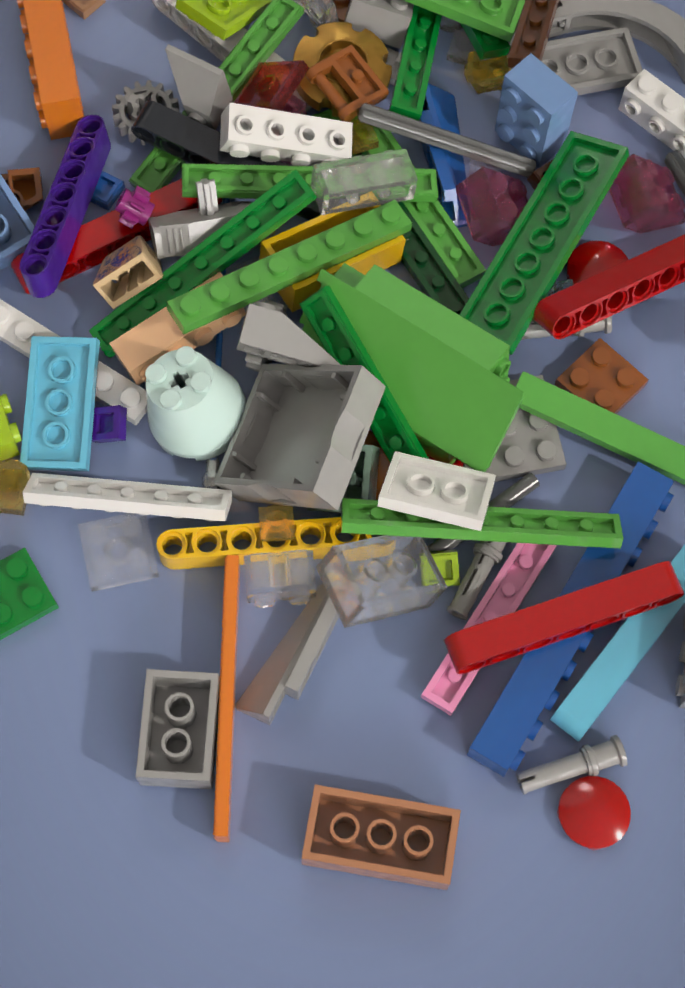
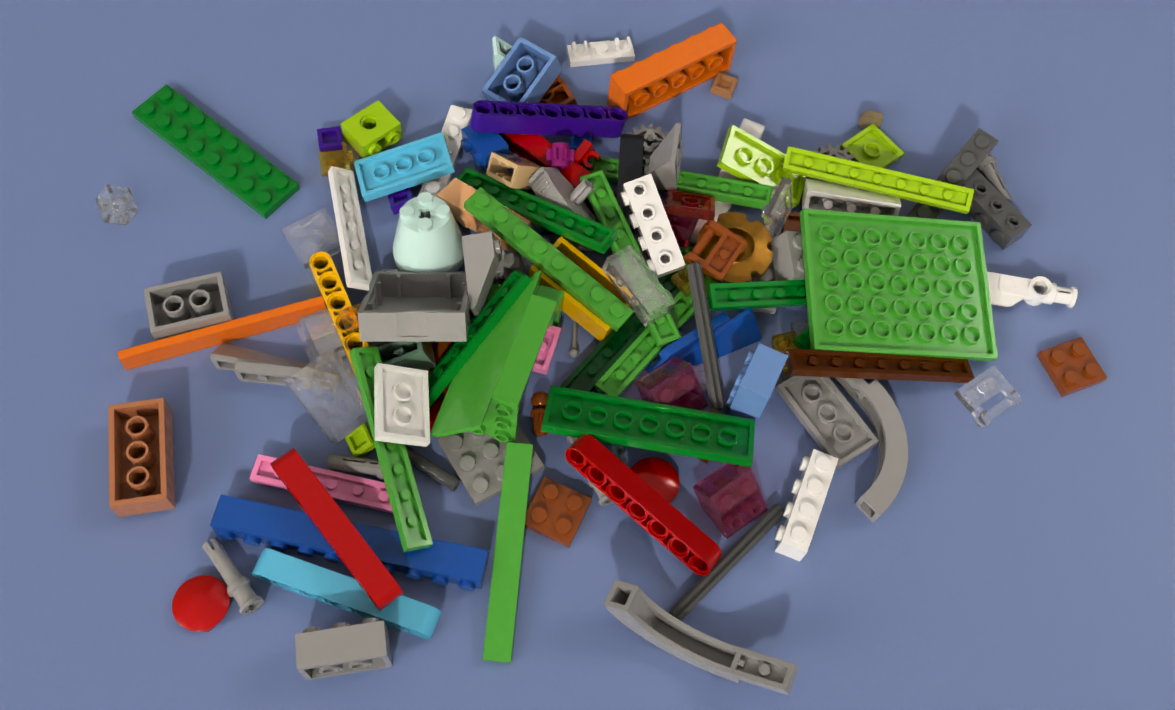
camera: 65 degrees right, 5 degrees down
(71, 300) = (482, 144): none -> blue brick
(129, 180) = (584, 153): none -> red tile

